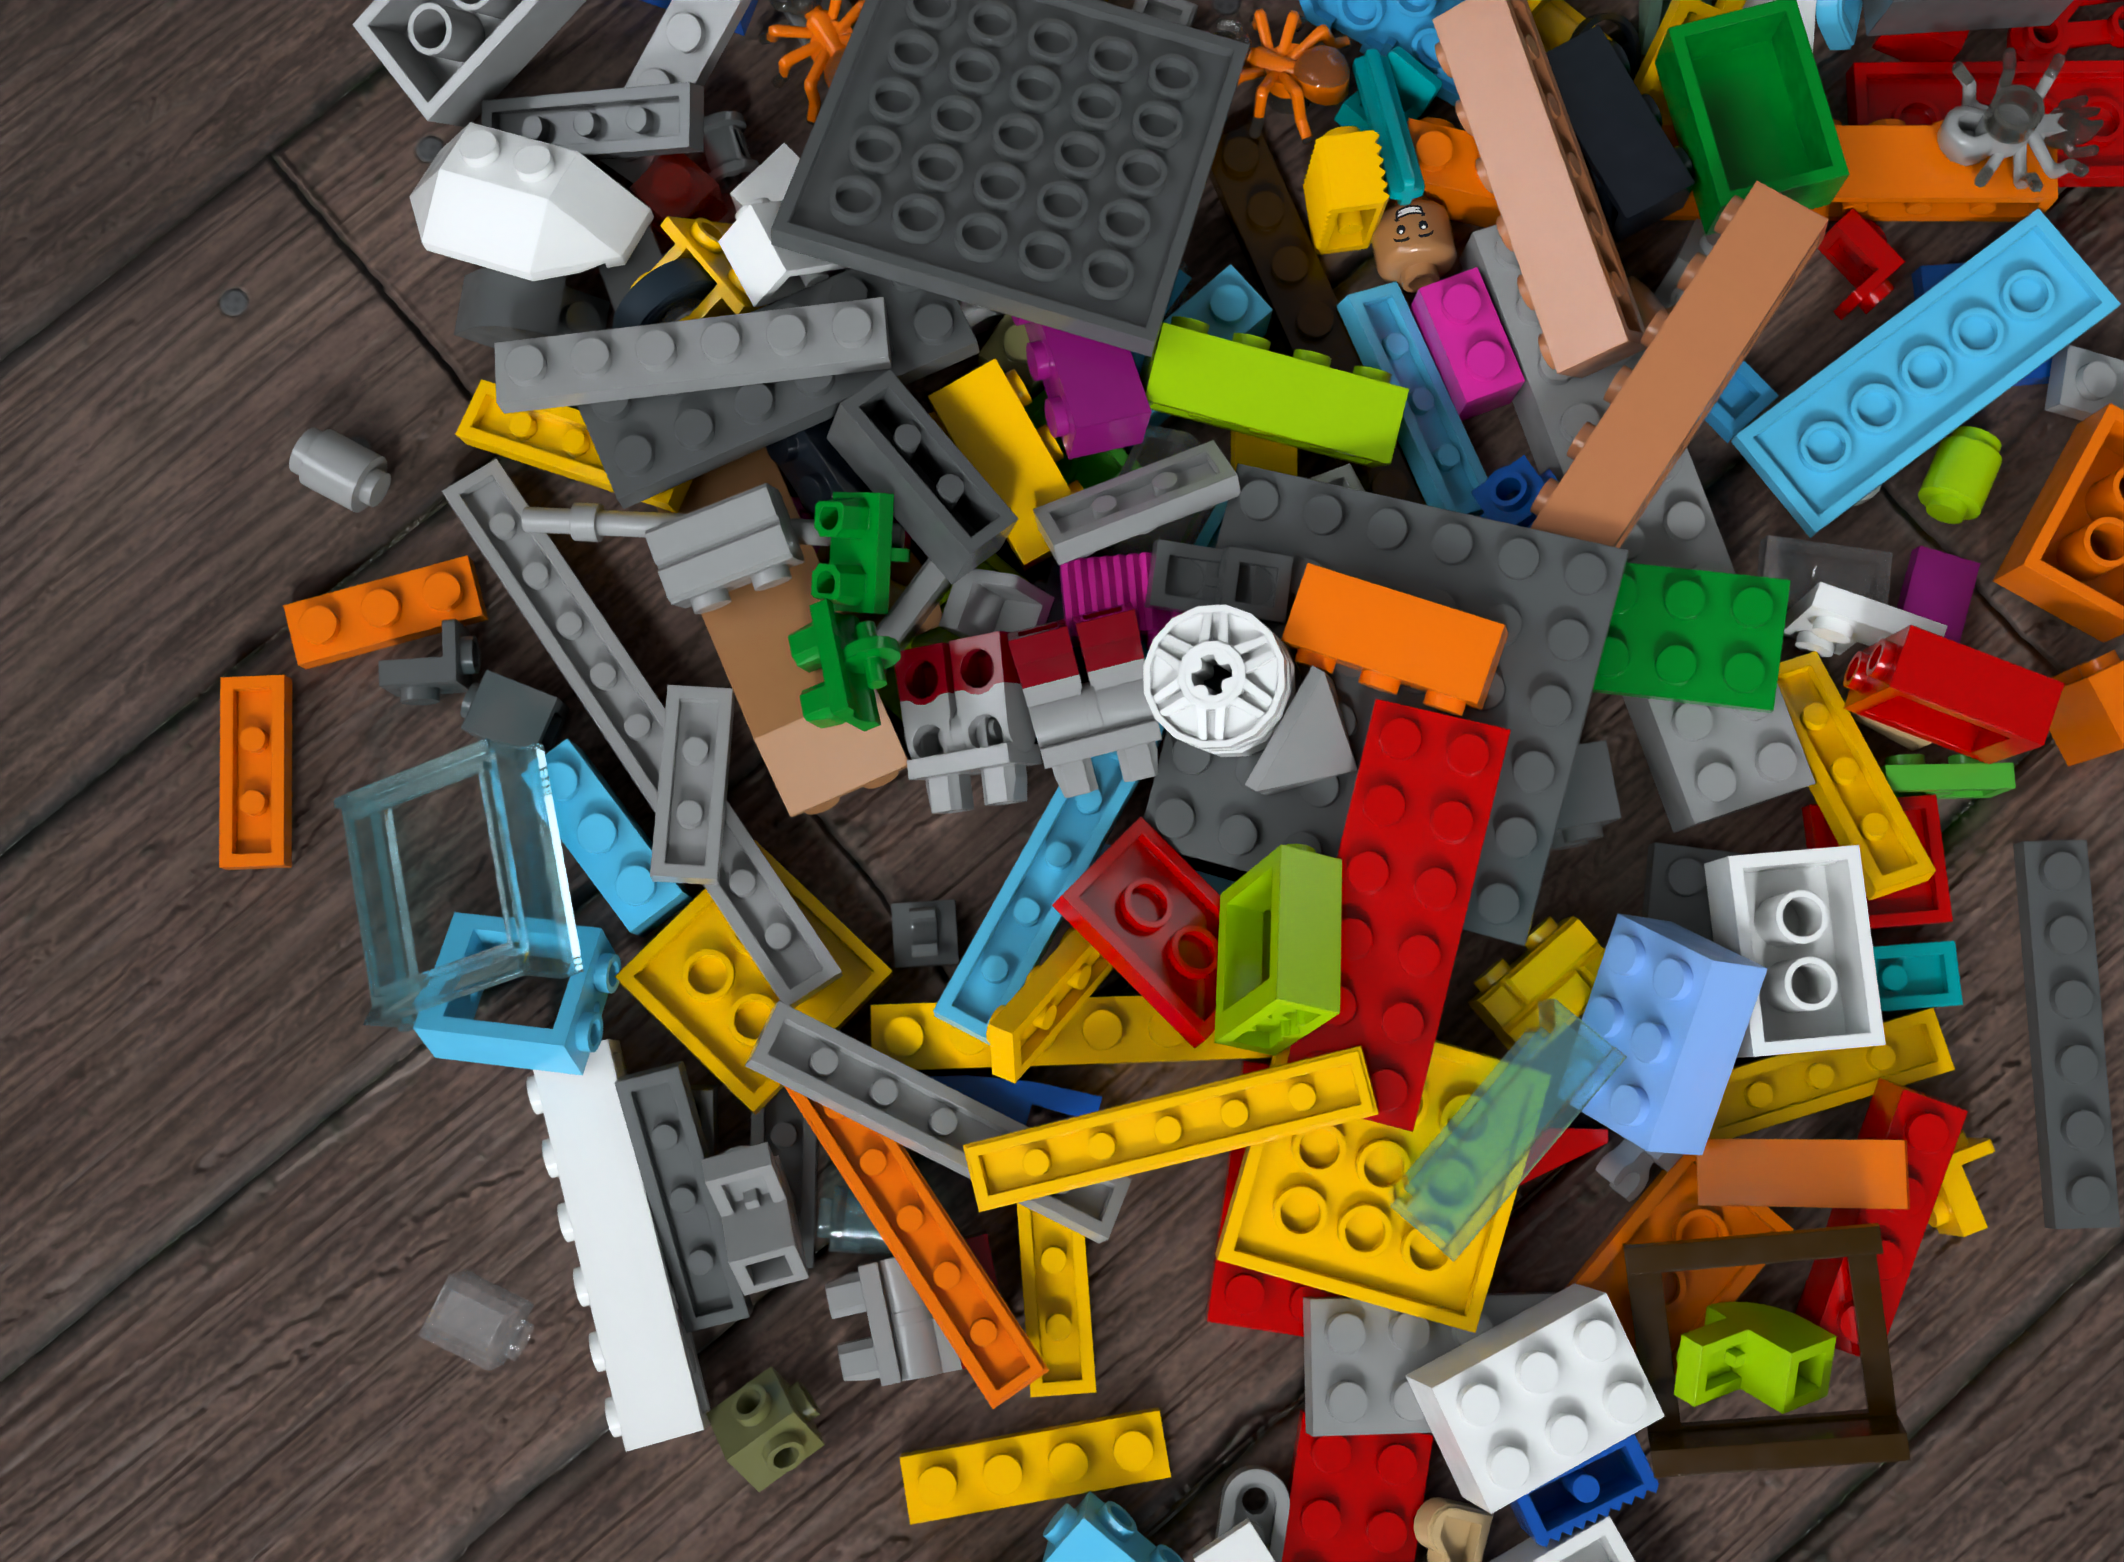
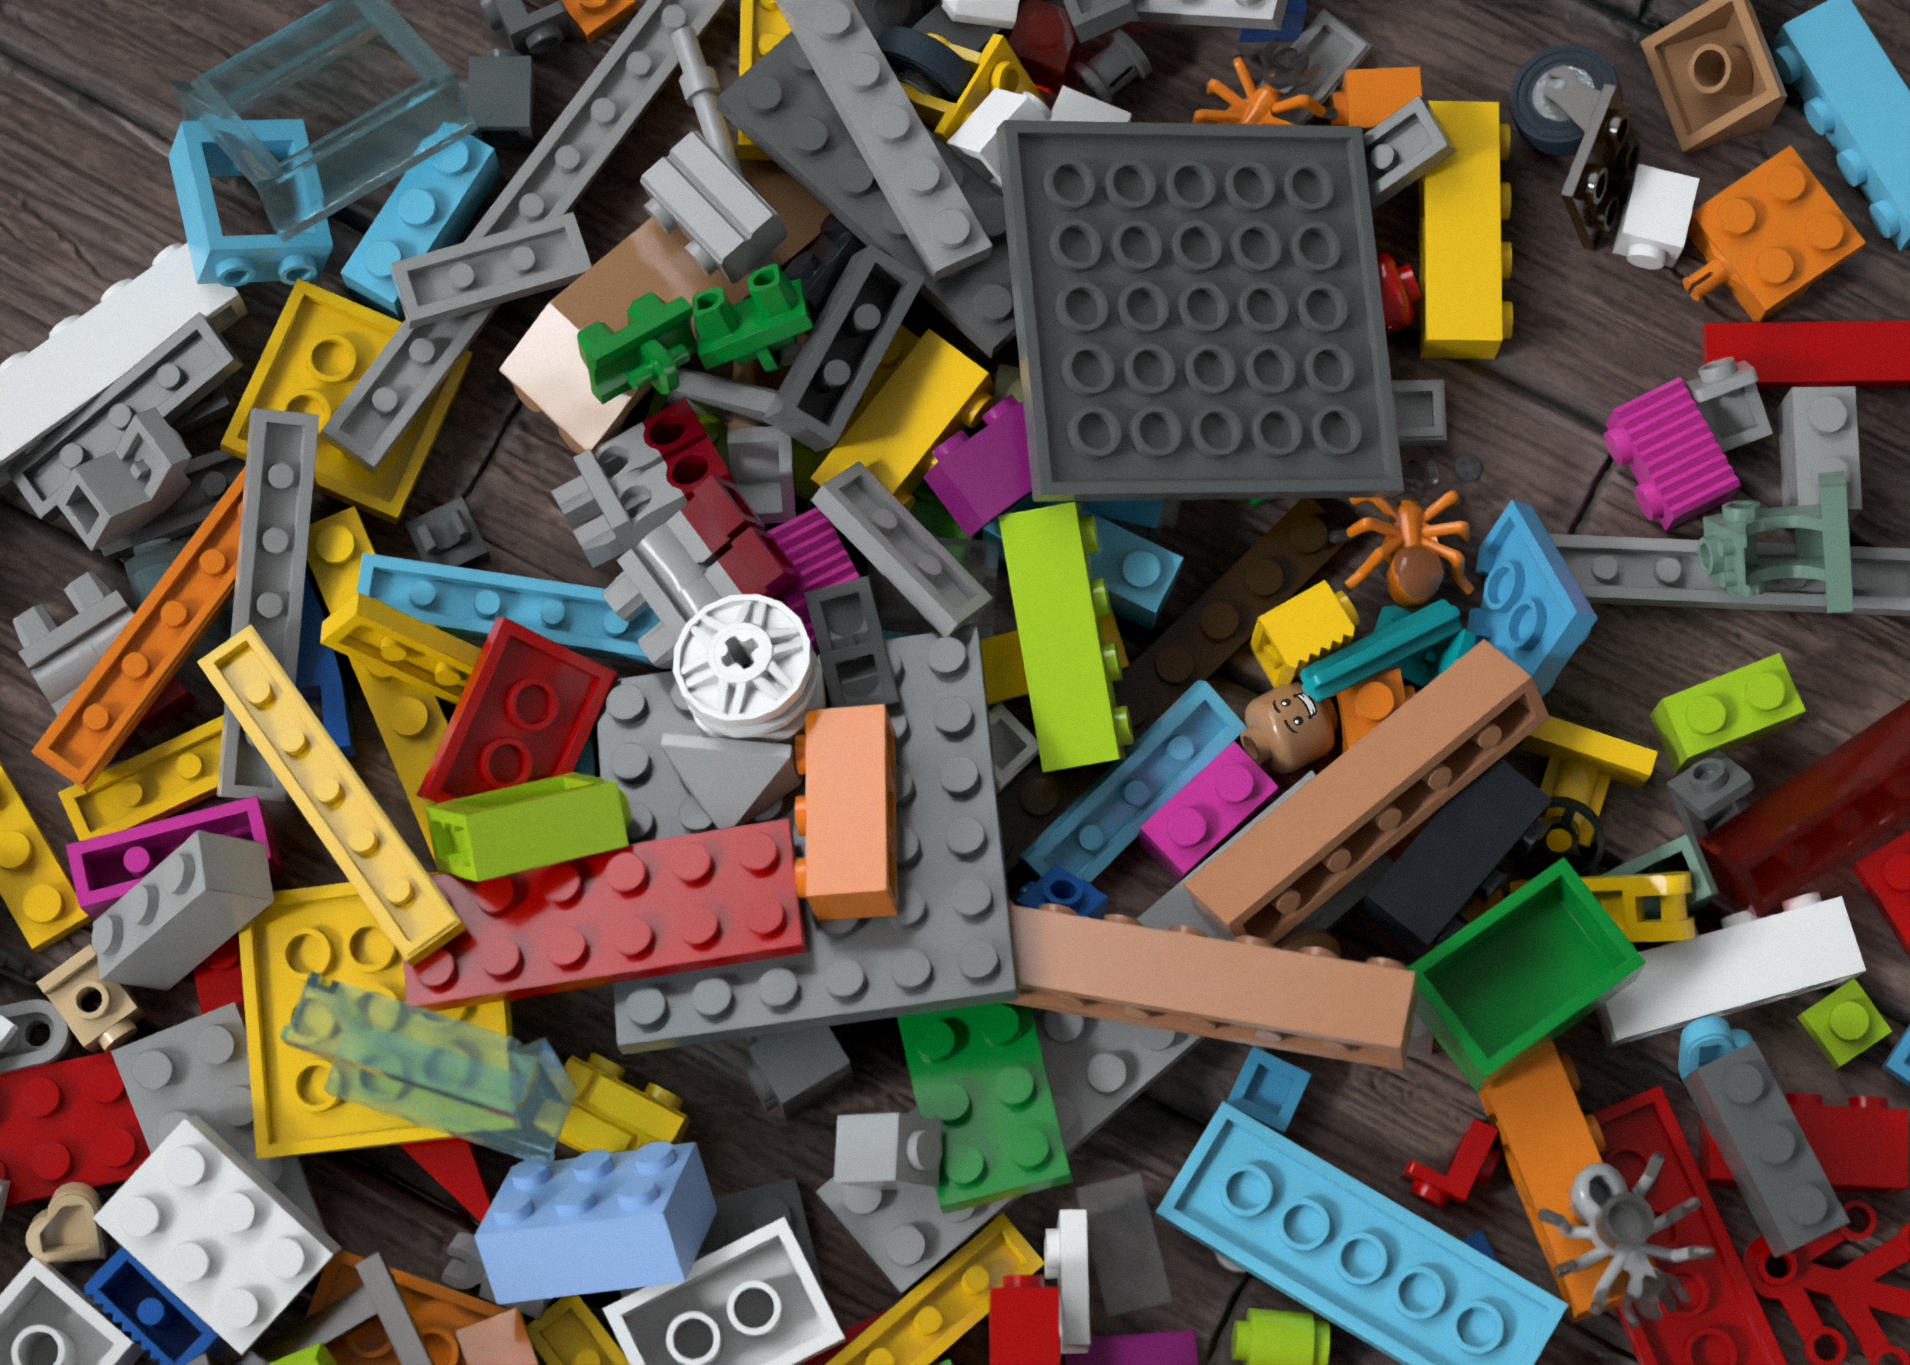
camera: 70 degrees right, 5 degrees down
(1144, 1308) = (115, 862): none -> dark pink brick
(1212, 1315) = (182, 911): none -> light grey brick
(1224, 1423) = (108, 1025): none -> tan brick
(1707, 736) = (888, 1151): none -> light grey brick

